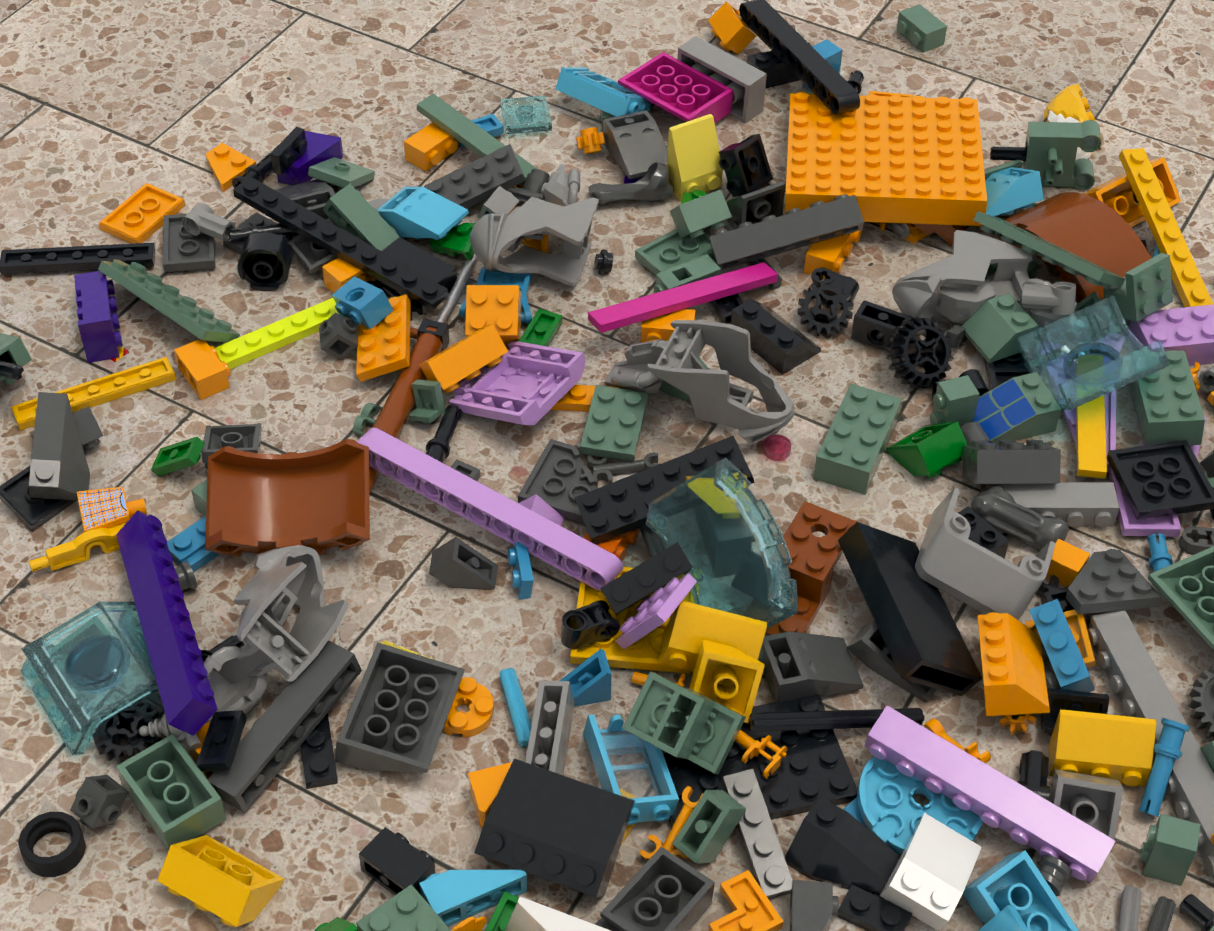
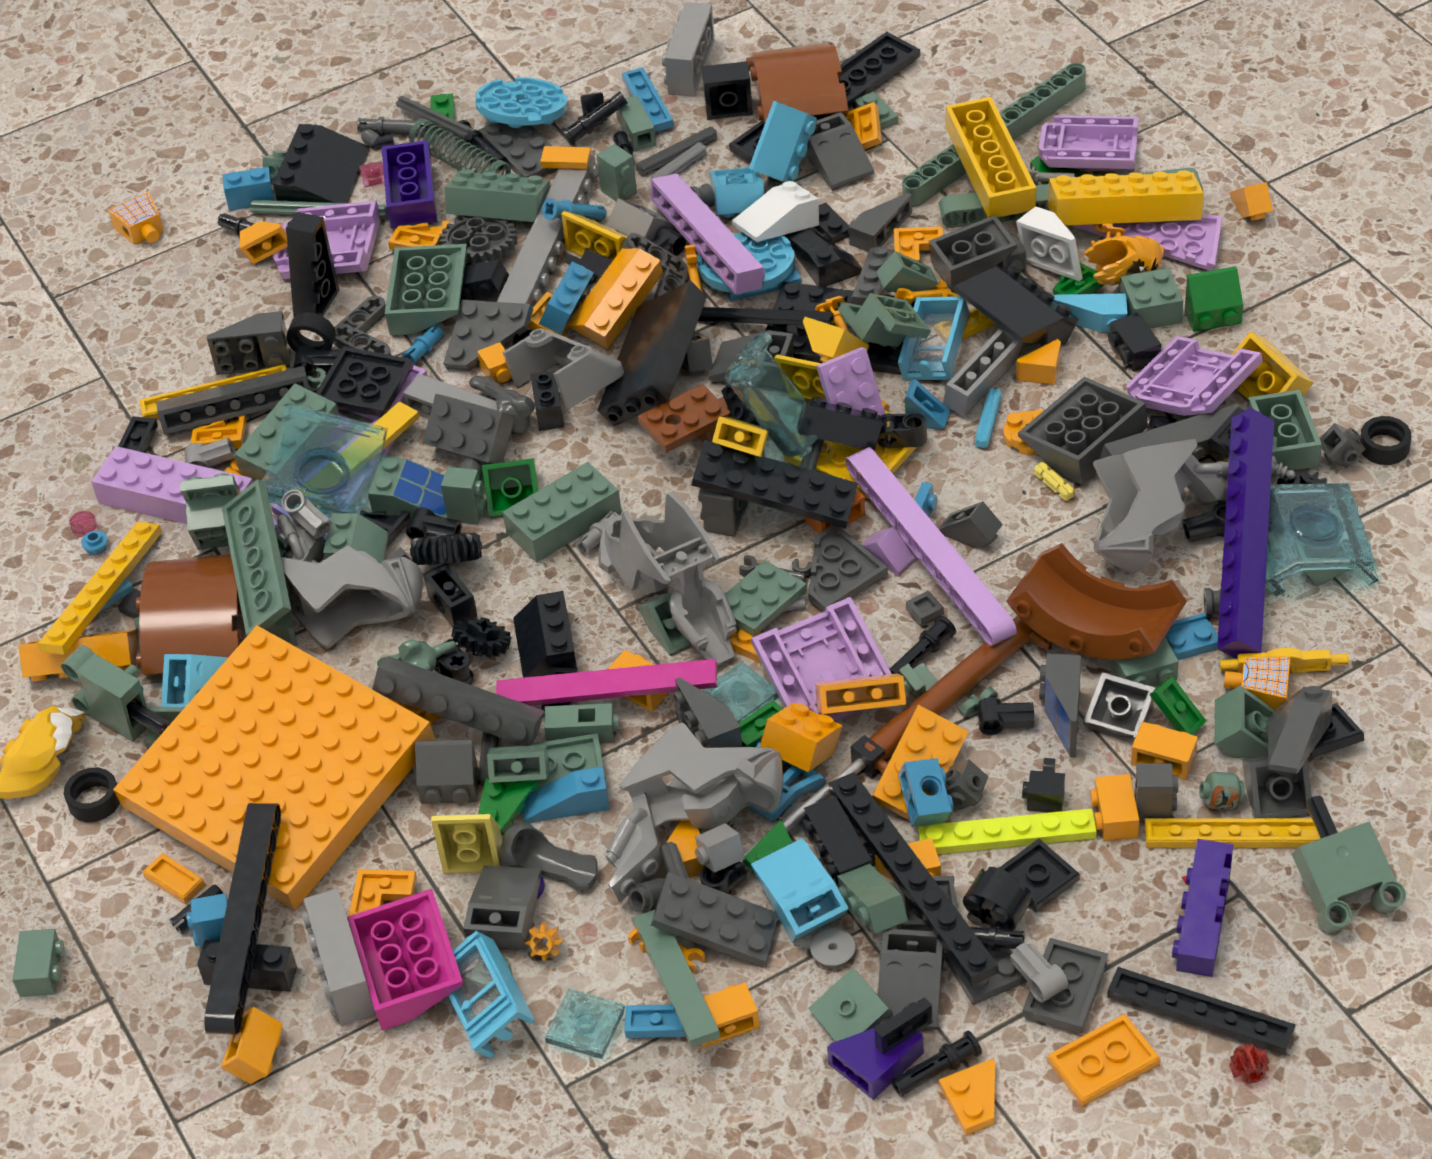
camera: 145 degrees left, 0 degrees up
(27, 233) = (1249, 1063): none -> clear red gear
(114, 410) = (1222, 791): none -> sand green head
(114, 464) = (1242, 724): none -> sand green slope
(169, 301) = (1122, 892): sand green plate -> none
(169, 373) = (1155, 790): none -> dark grey brick
(176, 424) = (1165, 746): none -> light orange brick
(246, 304) = (1041, 872): none -> black plate
(269, 362) = (1045, 789): none -> black brick
(284, 417) = (1062, 696): none -> dark grey slope
(302, 823) = (1191, 378): none -> lavender wedge
(341, 405) = (995, 715): none -> black piece
(573, 294) = (706, 717): none -> dark grey slope
(594, 351) = (742, 691): none -> clear light blue plate
(643, 231) = (570, 795): none -> dark azure slope
(737, 128) = (377, 886): none -> light orange plate
(745, 166) = (418, 814): black plate -> none
(810, 438) = (593, 537): none -> light grey pin
(857, 260) = (420, 653): none -> sand green animal
(991, 743) = (670, 275): none -> dark grey beam
(1002, 131) = (86, 779): none -> black tyre
(1173, 642) = (483, 280): none -> black brick

